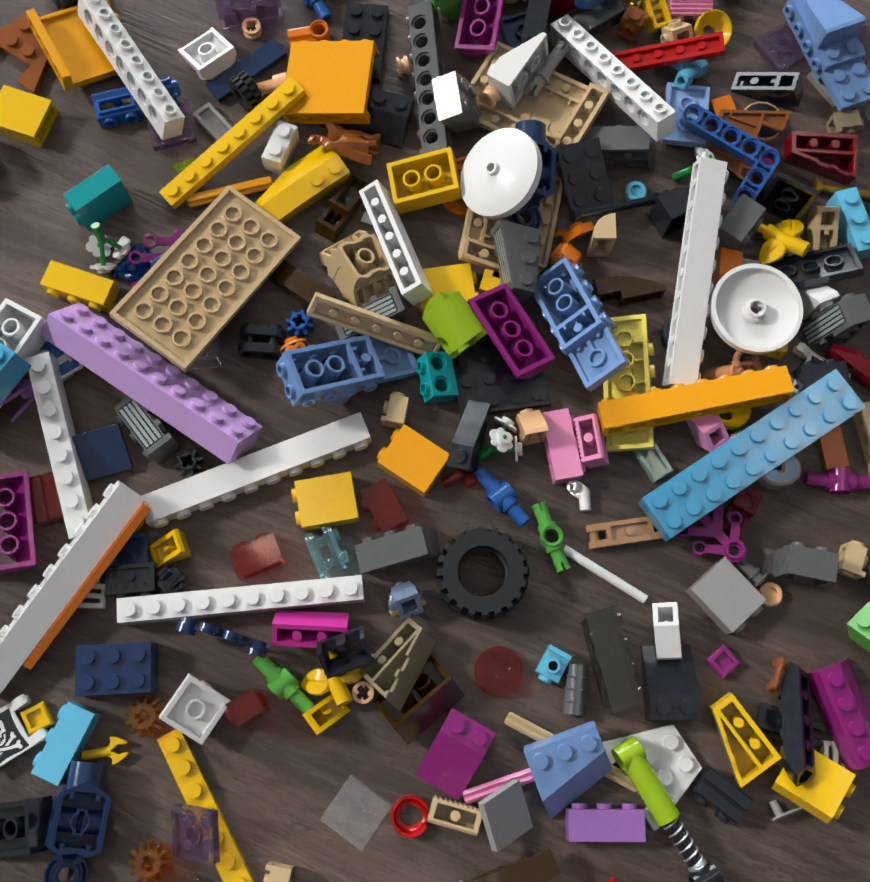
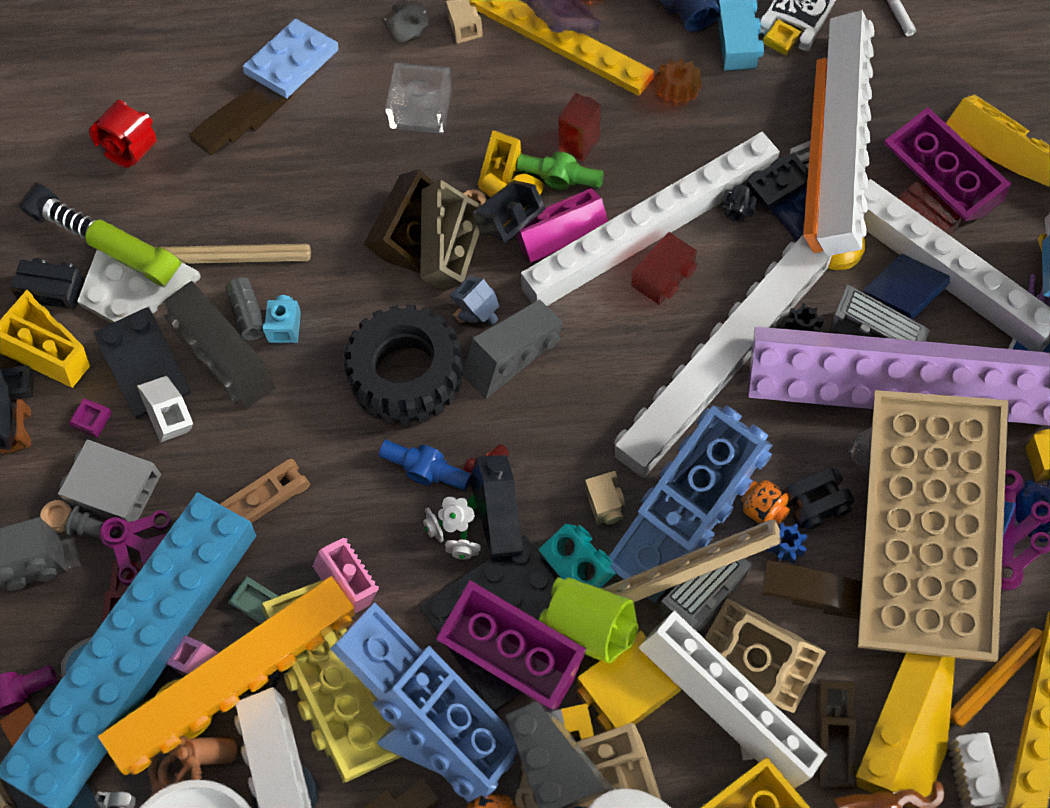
camera: 160 degrees right, 10 degrees down
(107, 751) = (693, 44): yellow bar -> none
(116, 669) = (734, 103): dark blue brick -> none
(170, 548) = (759, 234): yellow slope -> none
(194, 708) = (631, 102): white bracket -> none
(256, 647) = (642, 168): dark blue plant -> none
(325, 501) = (624, 359): yellow brick -> none
(338, 558) = (592, 309): clear light blue brick -> none
(383, 507) = (555, 384): clear red brick -> none
(403, 829) = (362, 114): red piece -> none
(413, 460) = (552, 452): light orange brick -> none
(454, 815) = (319, 139): tan brick -> none
(455, 754) = (346, 198): magenta slope -> none
(483, 790) = (288, 190): bright pink axle -> none
(498, 671) = (339, 290): clear red tile -> none
(505, 815) = (267, 159): light grey tile -> none
(531, 426) = (428, 556): light nougat slope -> none
(547, 525) = (336, 437): bright green pin -> none
(562, 447) = (383, 558): bright pink brick -> none
(567, 765) = (227, 232): medium blue wedge -> none
(582, 493) = (332, 520): white arm -> none
(605, 574) = (265, 443): white bar -> none
(605, 823) = (162, 204): medium lavender brick -> none

